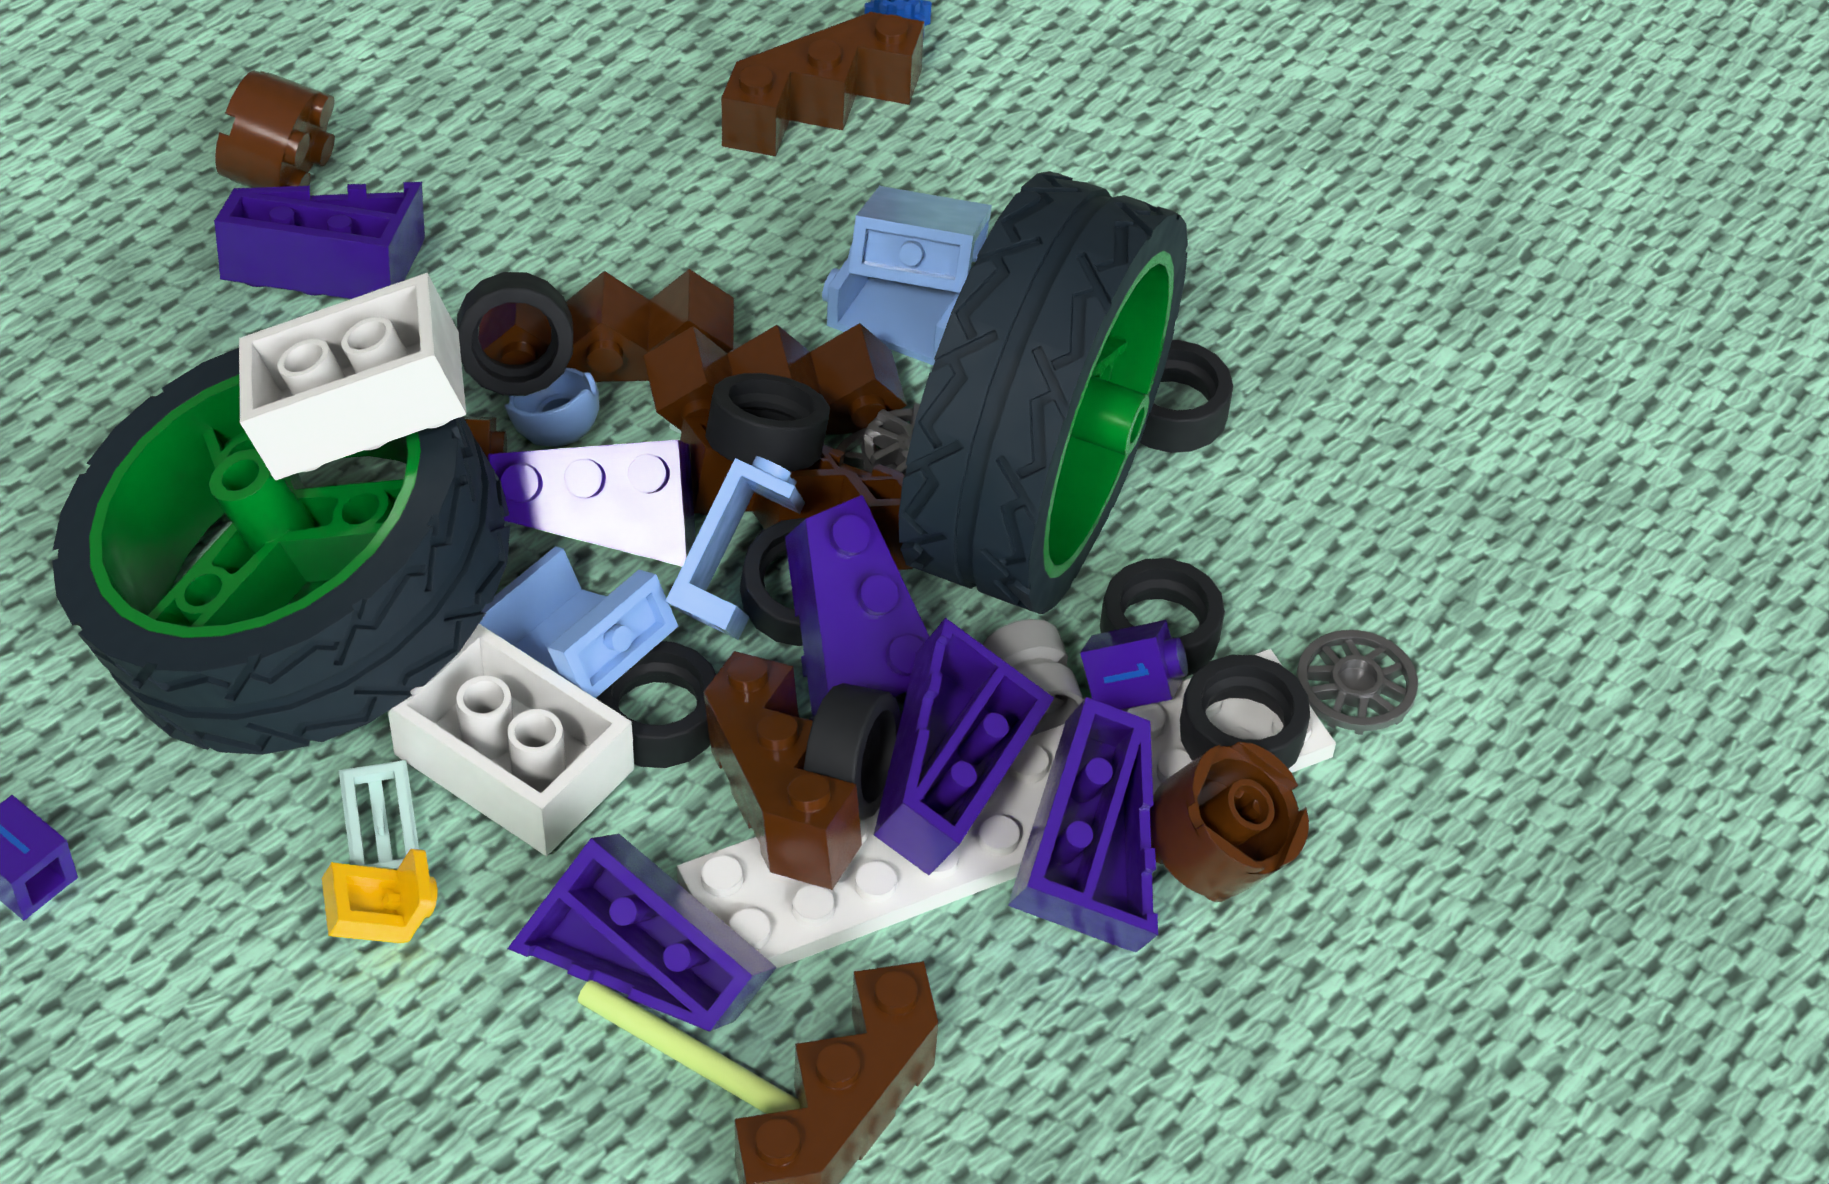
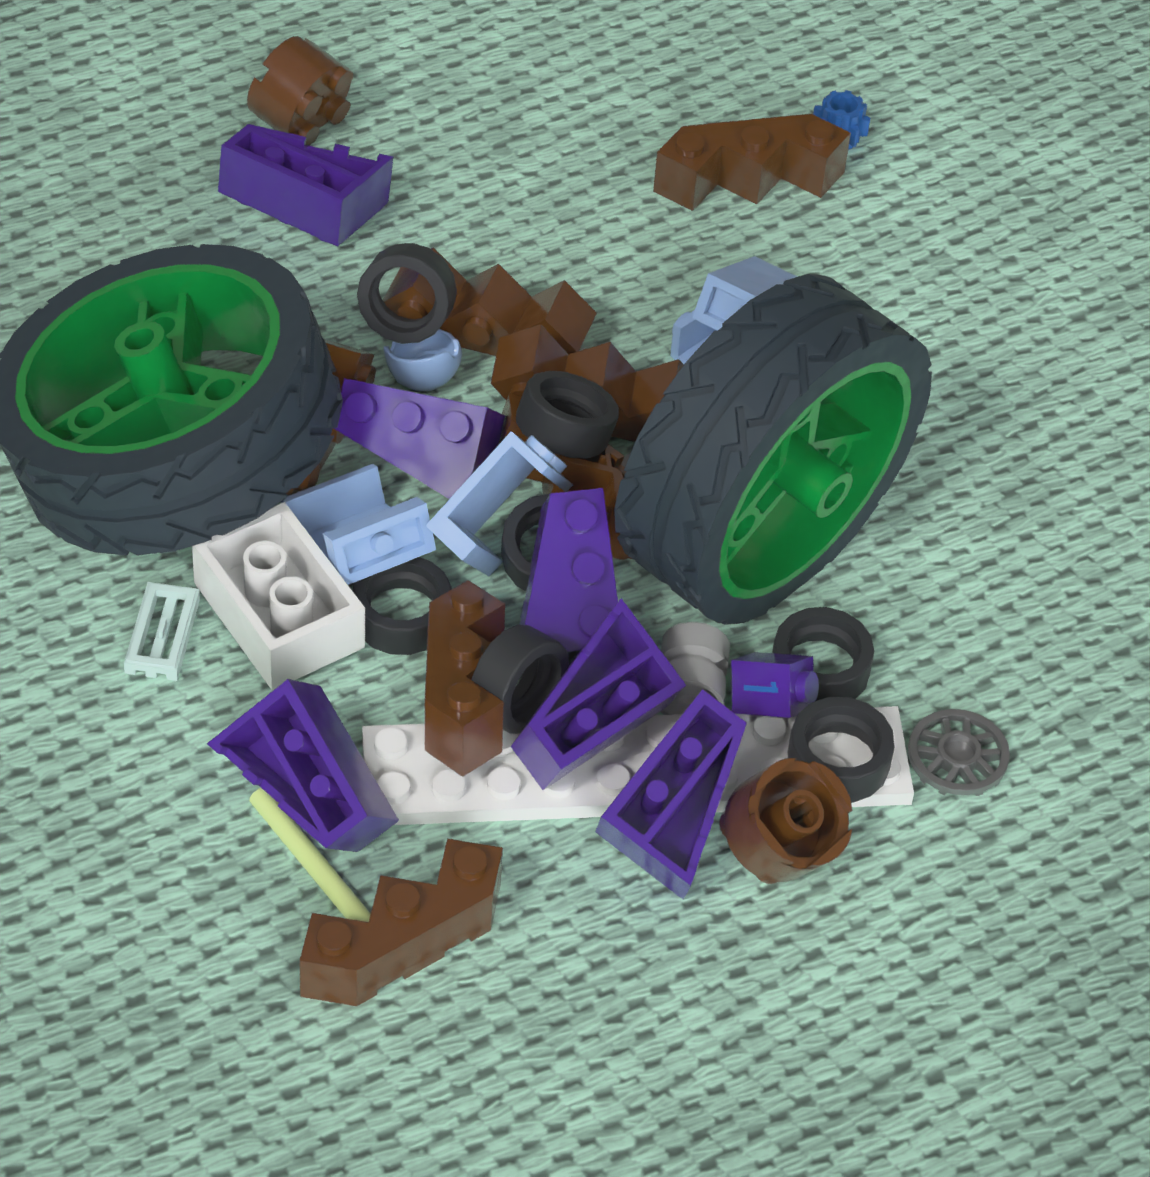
camera: 20 degrees right, 0 degrees up
(350, 377) = (239, 288): white brick -> none
(379, 901) = (134, 683): yellow bracket -> none
(1197, 427) = (926, 518): black tyre -> none

